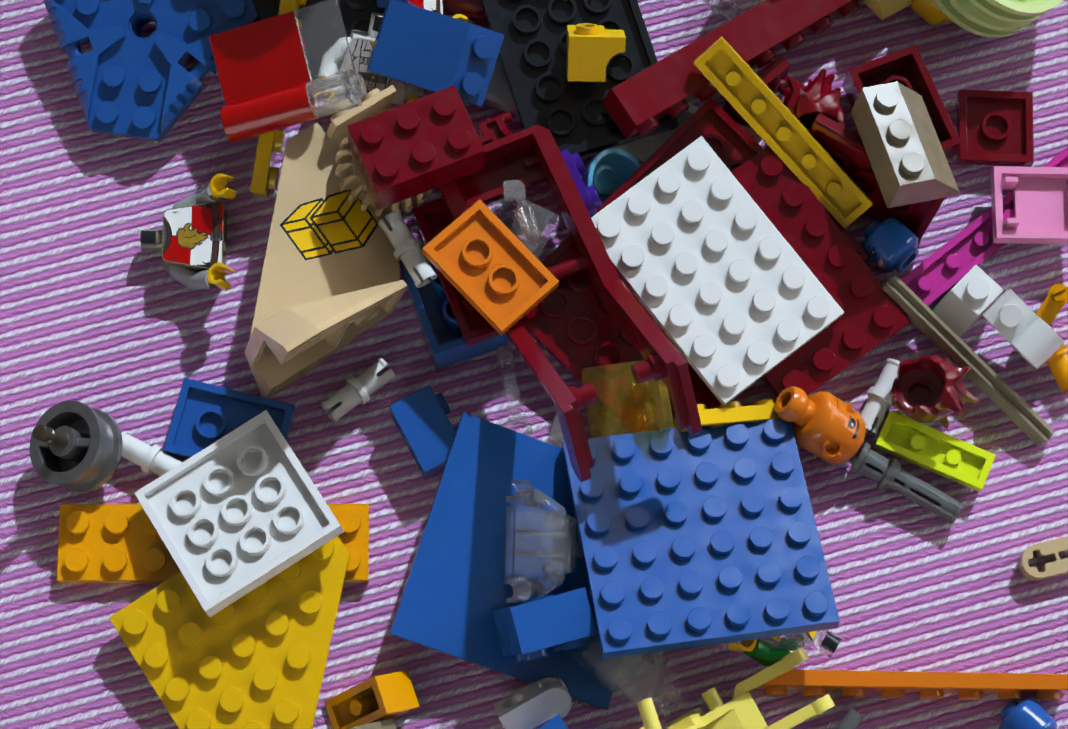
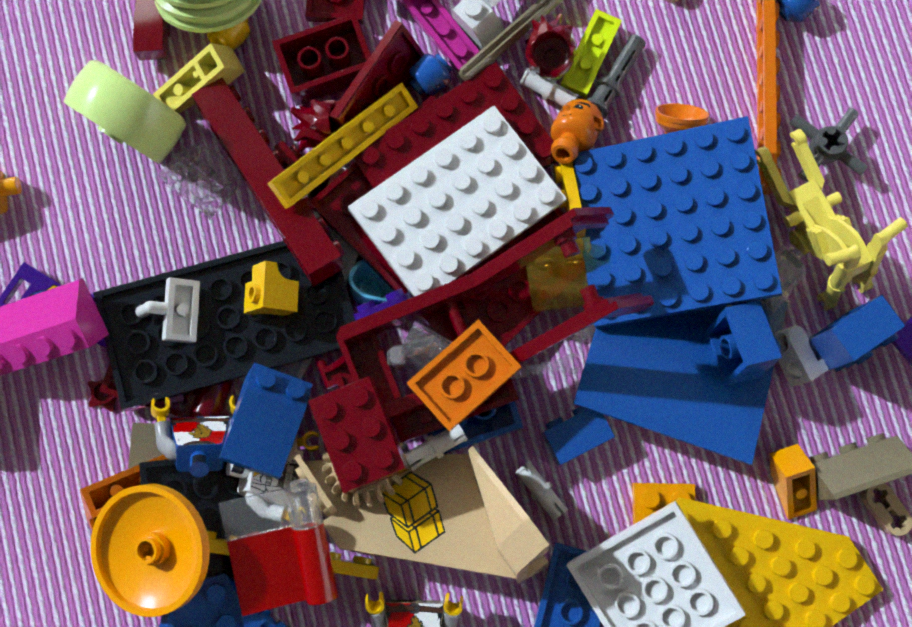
camera: 85 degrees left, 5 degrees up
(538, 543) = (681, 347): clear torso -> none
(850, 563) = (678, 117): none -> orange piece
(902, 145) = (362, 52): dark tan slope -> none

